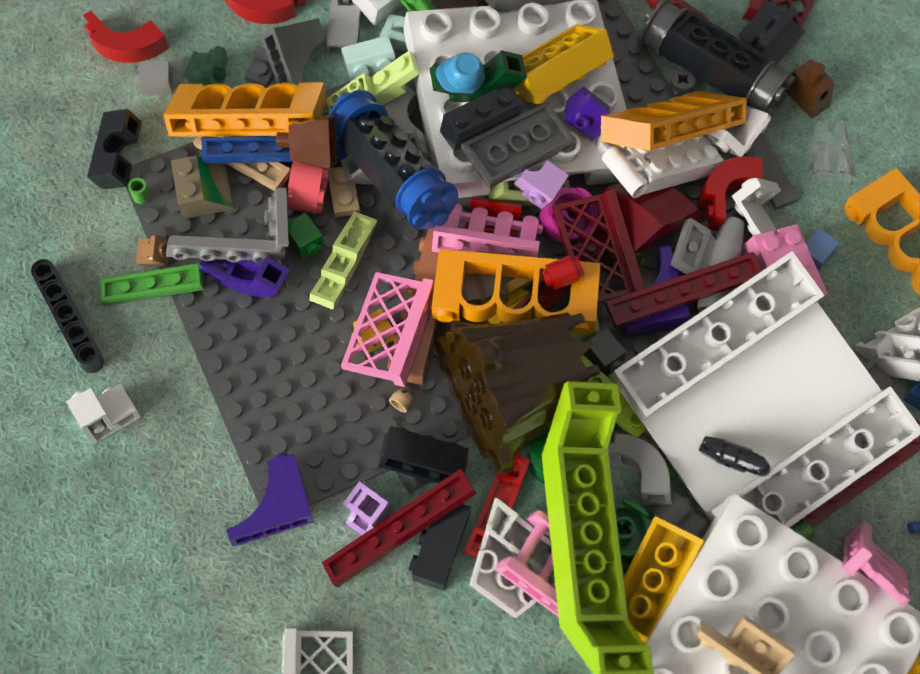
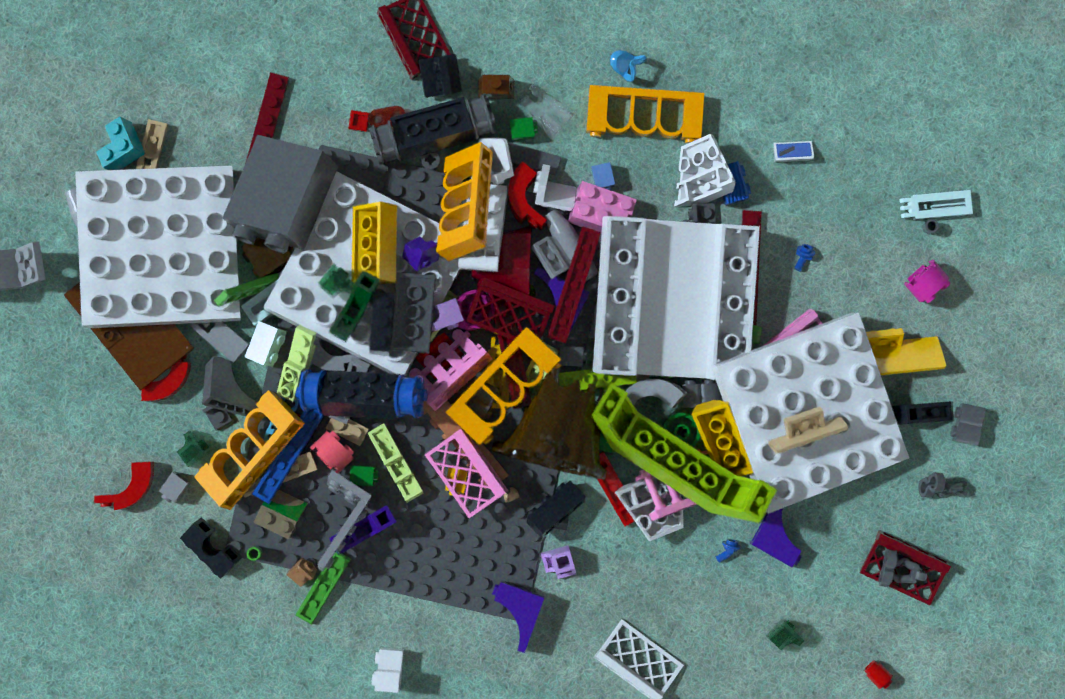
camera: 50 degrees left, 20 degrees up
(59, 308) = (297, 653): black beam -> none
(311, 141) = (311, 431): reddish brown torso -> none
(398, 528) = (586, 553): dark red plate -> none
(439, 548) = (610, 536): black brick -> none
(461, 73) = (348, 318): dark azure hat -> none
(487, 42) = (335, 281): none -> clear green brick
(563, 272) = (518, 355): red brick -> none
(734, 456) = (691, 342): black hinge -> none
(792, 142) = (523, 128): none -> green brick
(865, 554) = (805, 315): bright pink fence -> none

